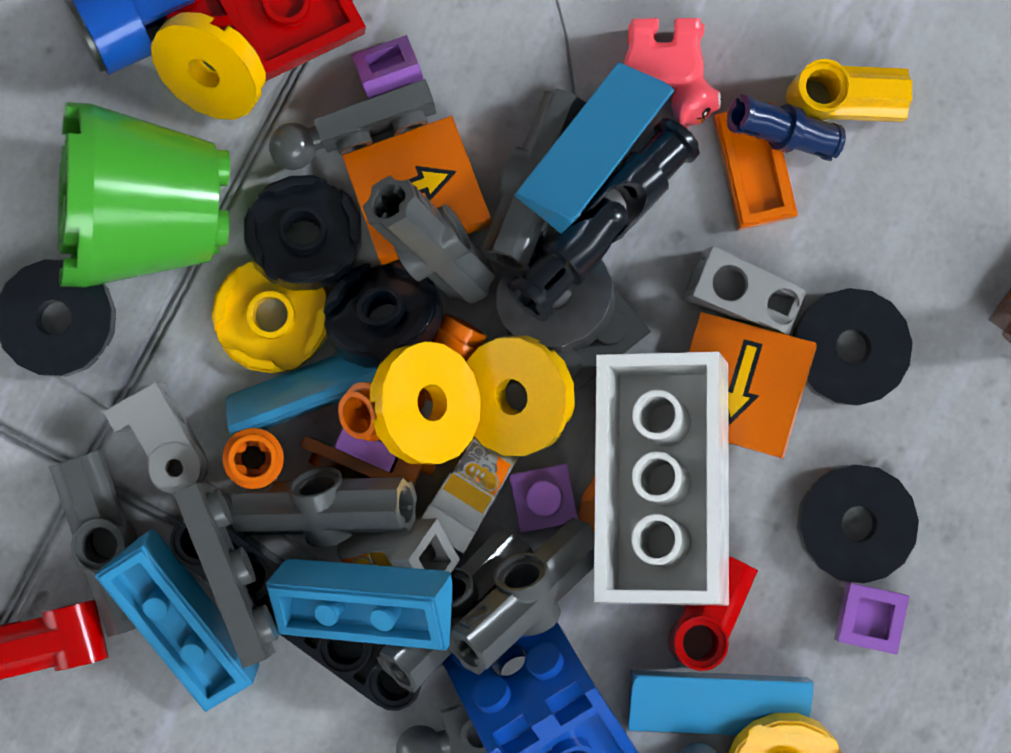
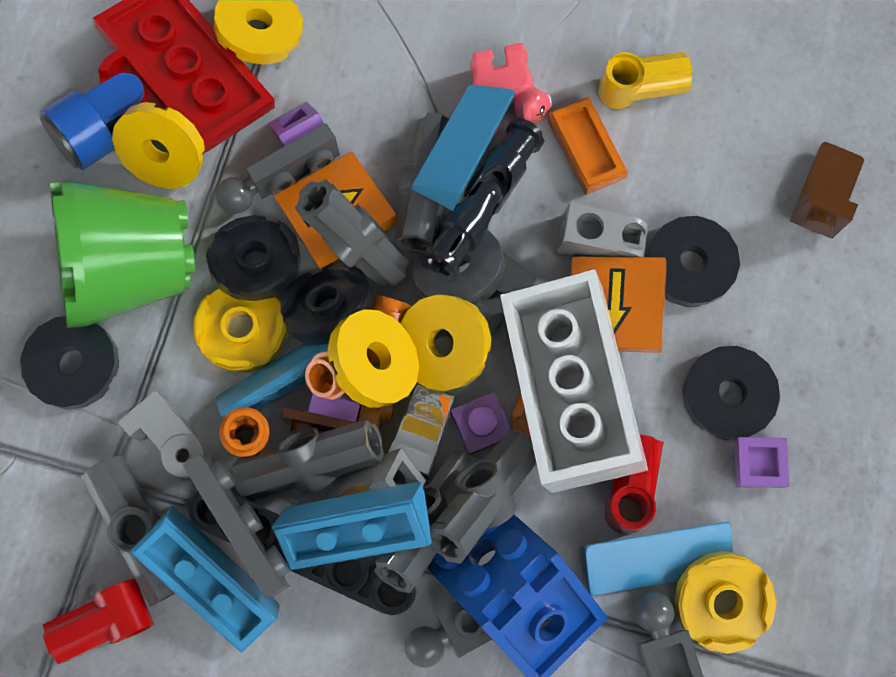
camera: 15 degrees left, 10 degrees down
(786, 127) = (604, 108): dark blue pin -> none

